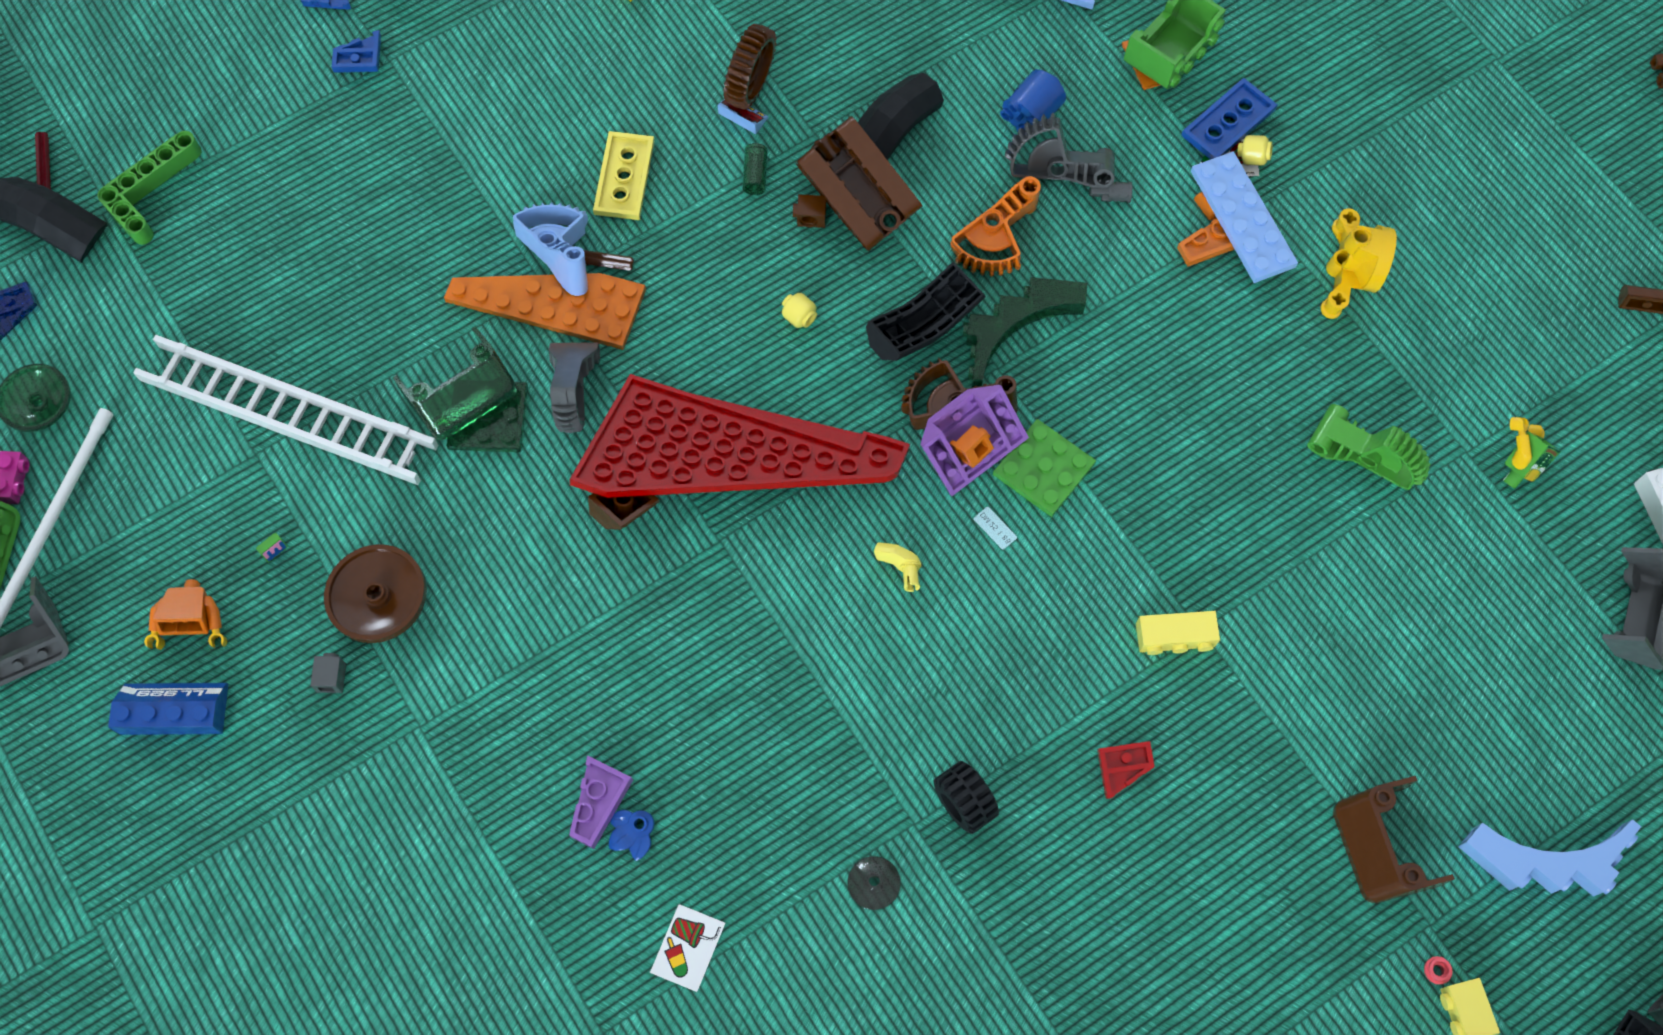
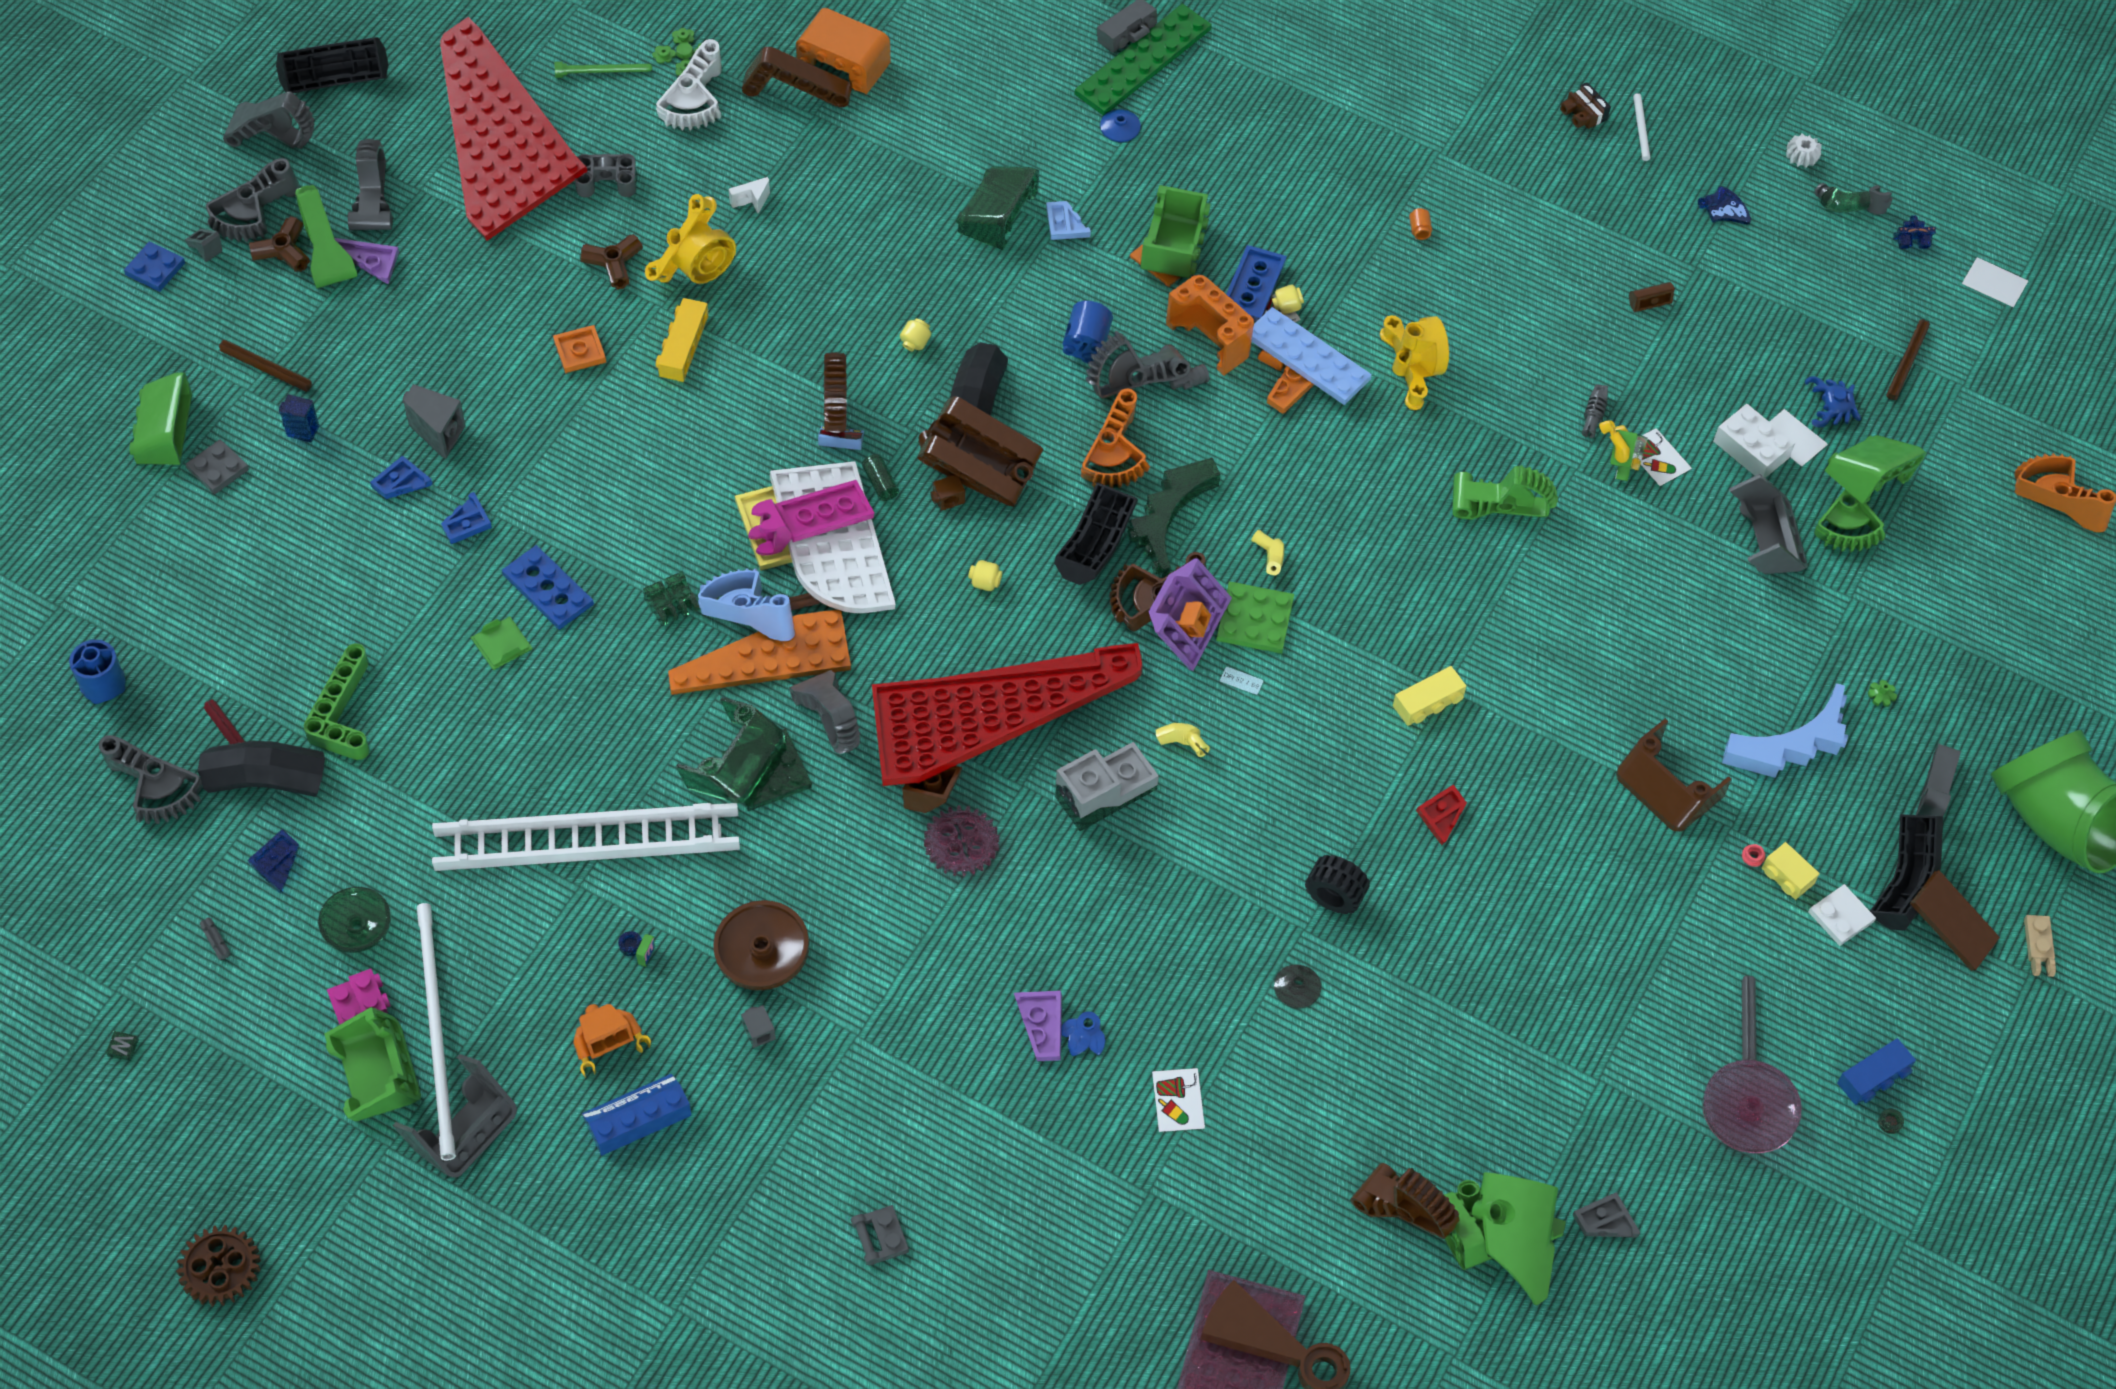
camera: 30 degrees left, 10 degrees down
(264, 530) = (629, 943): none -> clear blue tile
(324, 185) = (501, 642): none -> bright green piece
(329, 948) = (887, 1231): none -> dark grey plate
(407, 155) = (546, 600): none -> blue plate
(485, 204) = (676, 590): none -> clear green legs
(602, 570) = (941, 846): none -> clear pink gear
(660, 179) = (808, 516): none -> dark pink hinge
(676, 210) = (841, 565): none -> white plate
(791, 581) = (1101, 786): none -> light grey piece
(867, 41) = (915, 335): none -> light yellow head
(1100, 406) = (1274, 549): none -> light yellow arm
(1161, 121) = (1214, 313): none -> orange windscreen
(1436, 125) = (1420, 223): none -> orange brick
(1520, 396) = (1595, 409): none -> dark grey hinge
(1566, 479) = (1662, 459): none -> white sticker

